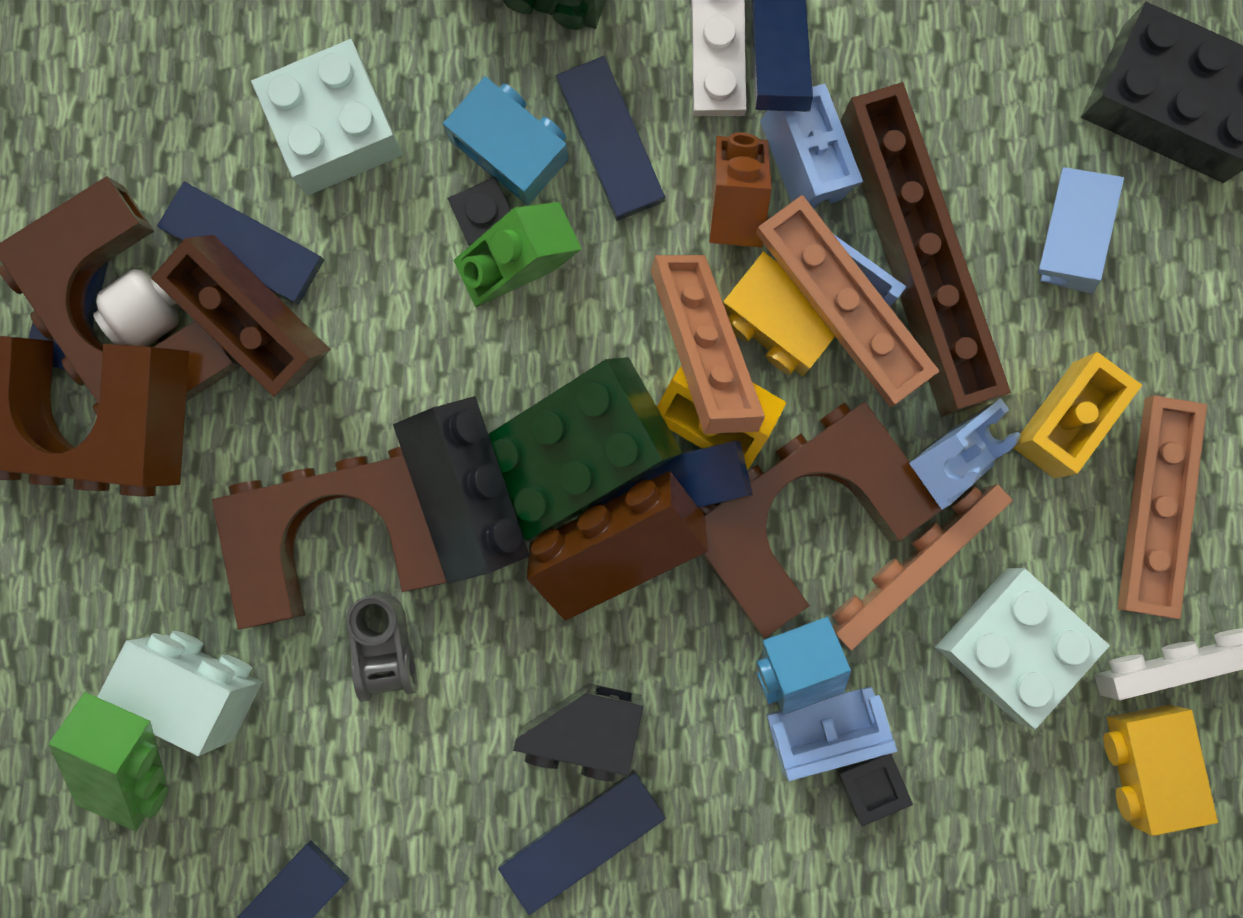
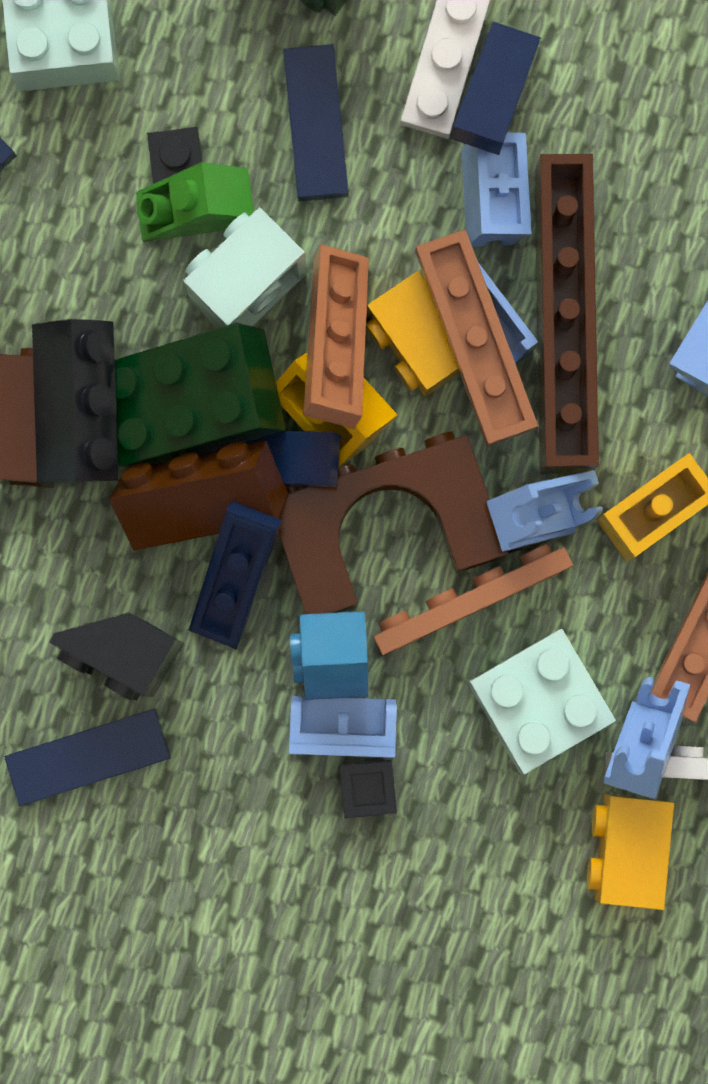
camera: 15 degrees right, 0 degrees up
(507, 139) = (218, 96): dark azure brick -> none
(592, 304) = (245, 272): none -> light aqua brick
(677, 614) = (234, 574): none -> dark blue tile
(739, 190) = (417, 205): dark orange slope -> none
(1150, 655) = (647, 740): none -> light blue hinge

